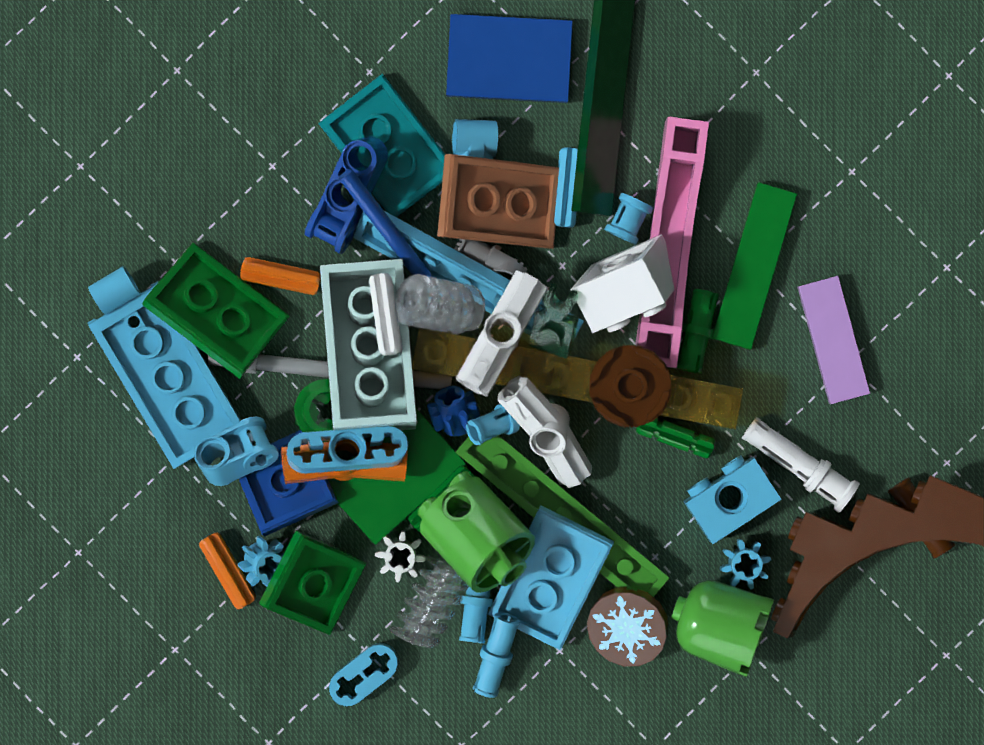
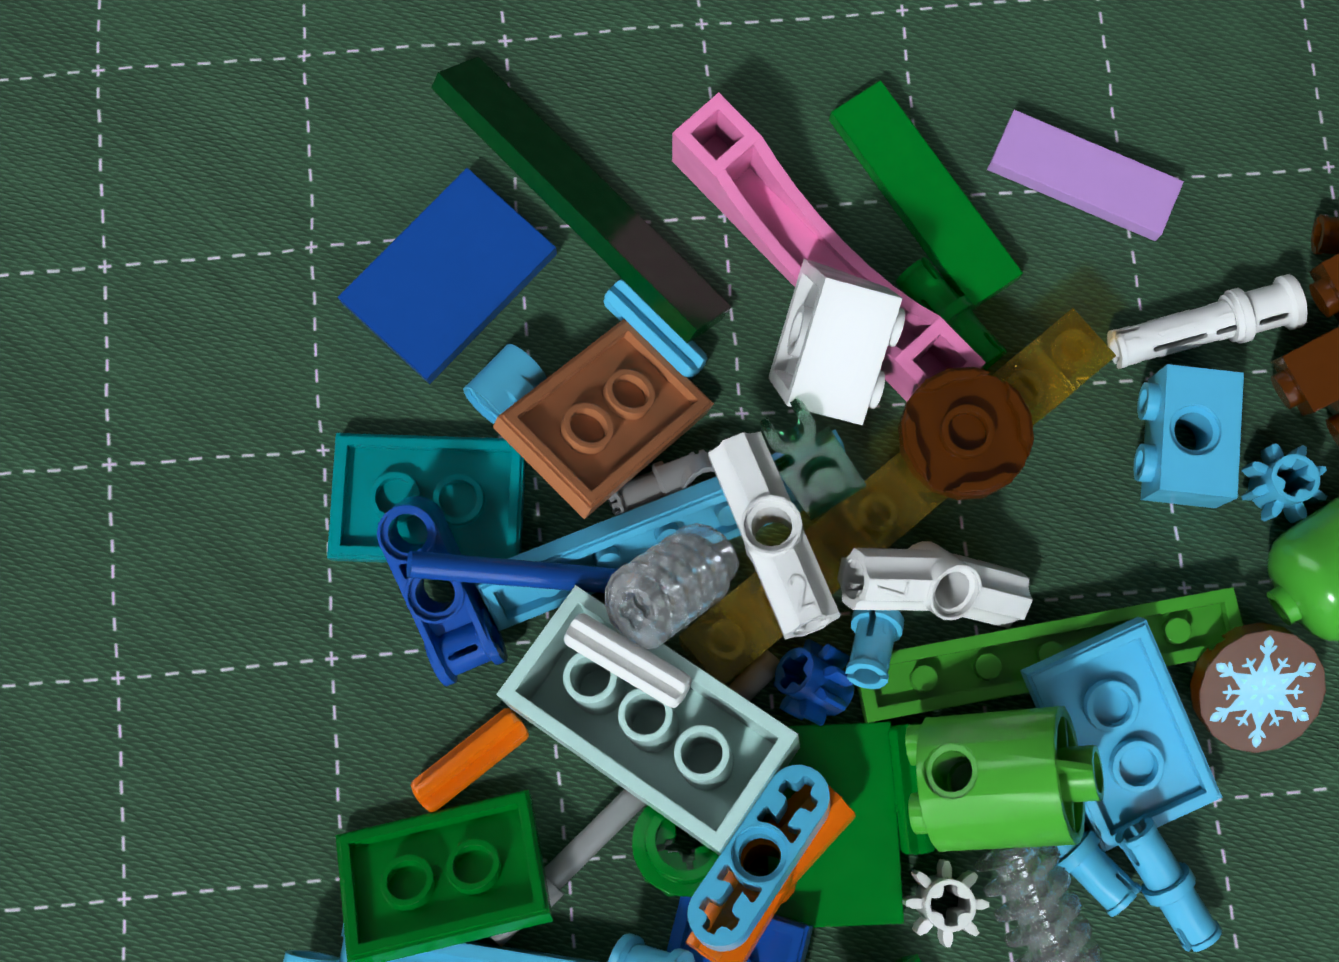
camera: 55 degrees left, 10 degrees down
(628, 218) = (751, 287): medium azure bush -> none
(678, 437) = (1066, 438): green axle -> none

